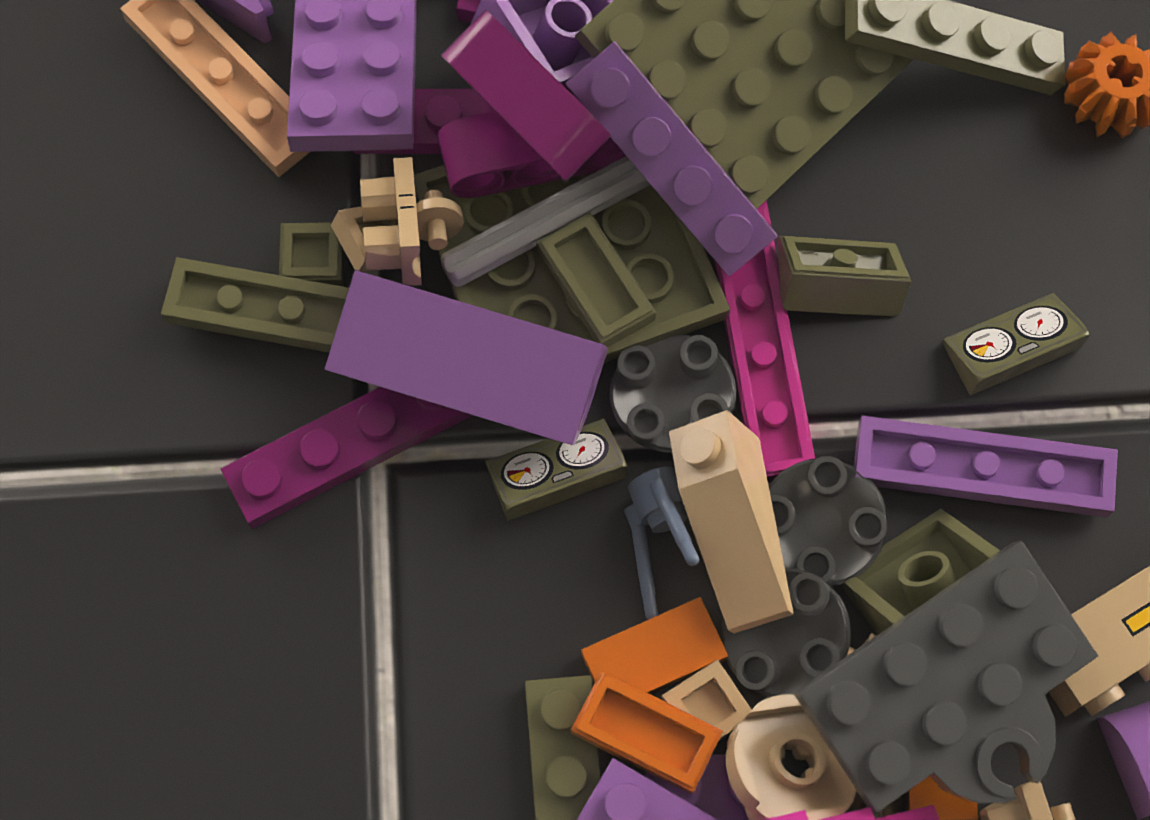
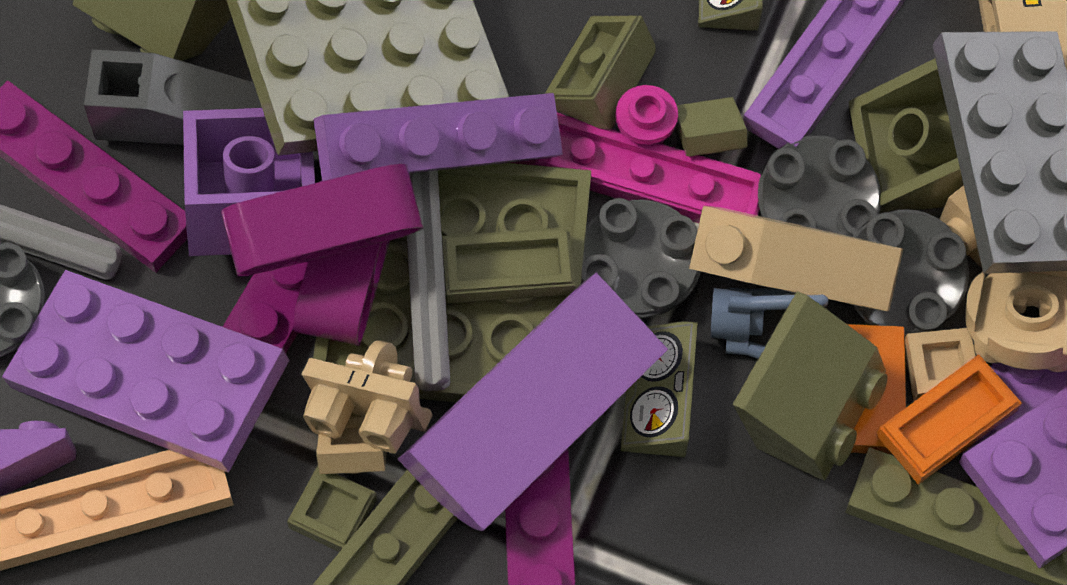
camera: 65 degrees left, 5 degrees down
(602, 587) = (811, 388): none -> olive slope
(812, 331) = (646, 114): none -> dark pink plate
(836, 393) = (711, 127): none -> olive tile

